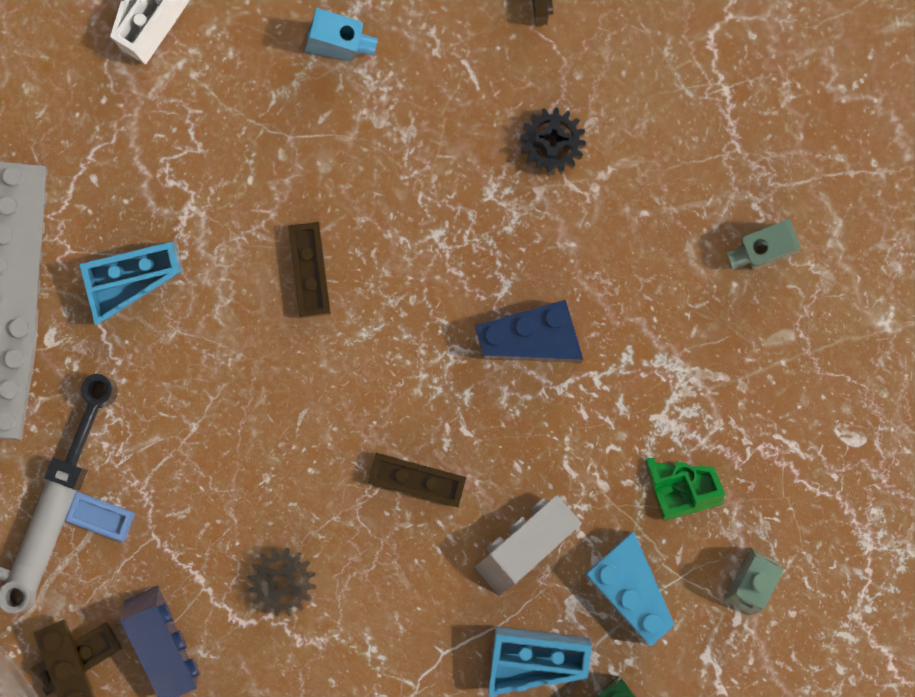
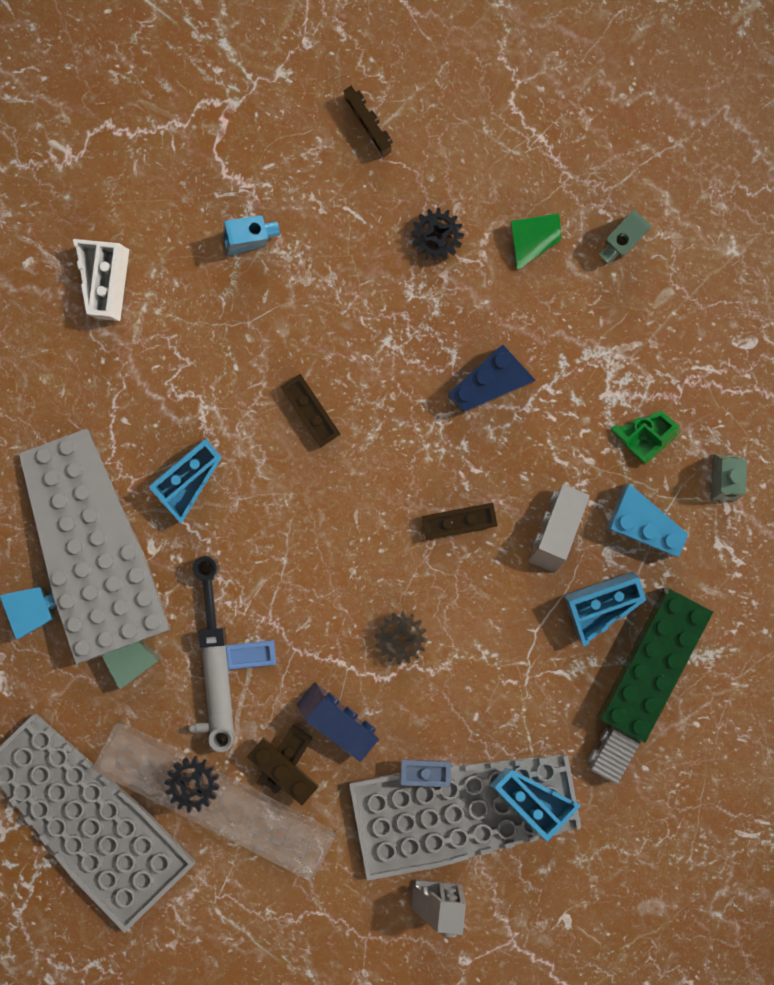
camera: 20 degrees left, 5 degrees up
(663, 197) = (534, 236): none -> green slope

